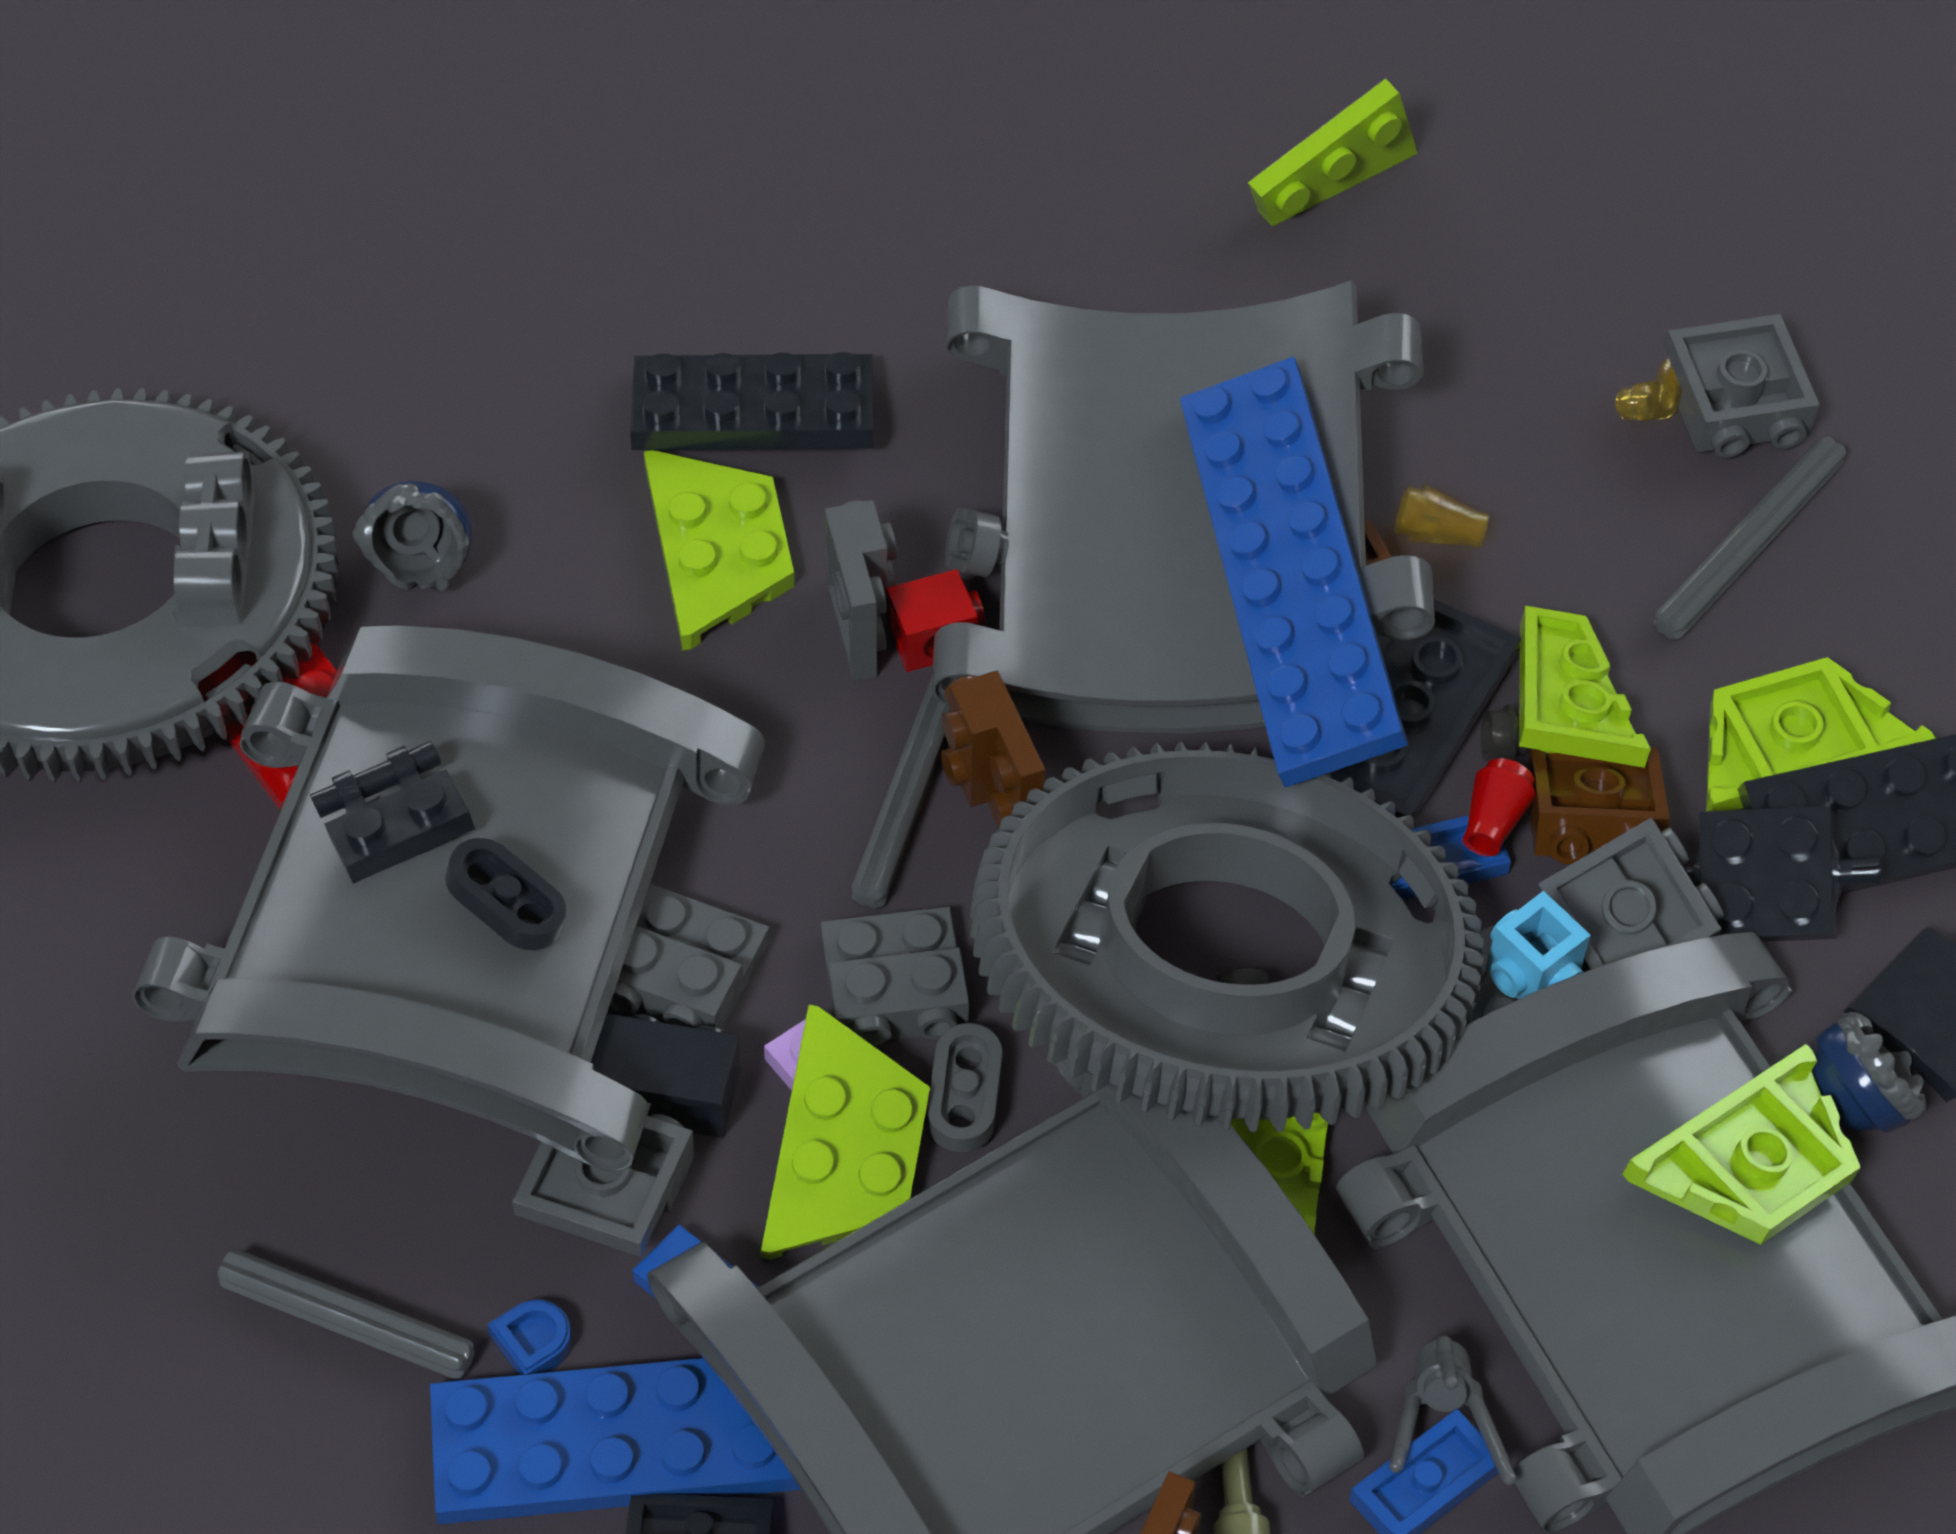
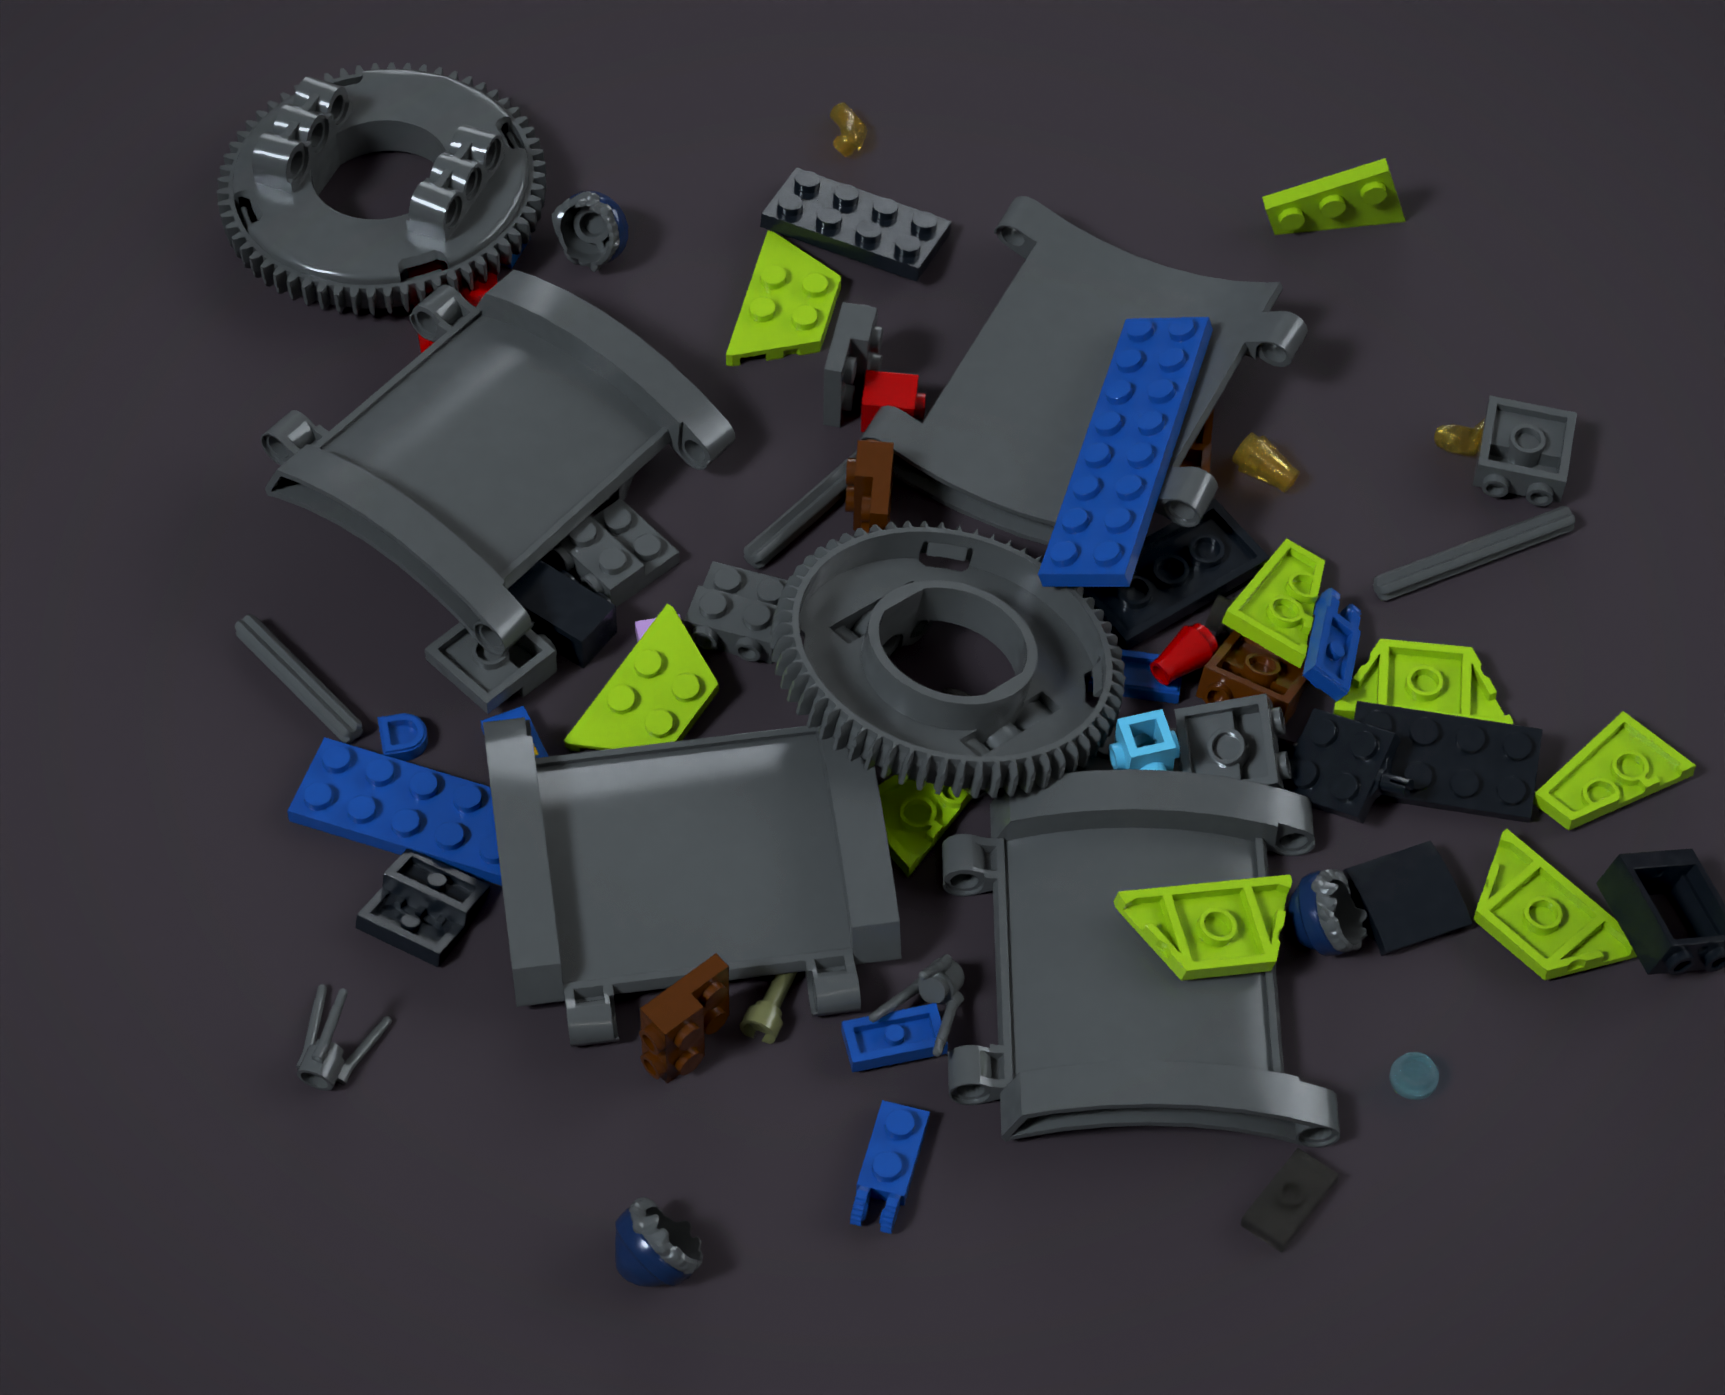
camera: 25 degrees right, 0 degrees up
(399, 824) = (469, 396): black plate -> none
(510, 894) = (511, 463): black plate -> none
(675, 277) = (851, 127): none -> clear yellow arm
(964, 1092) = (740, 697): dark grey plate -> none
(975, 543) = (942, 364): dark grey plate -> none
(1666, 720) = (1332, 645): none -> blue hinge

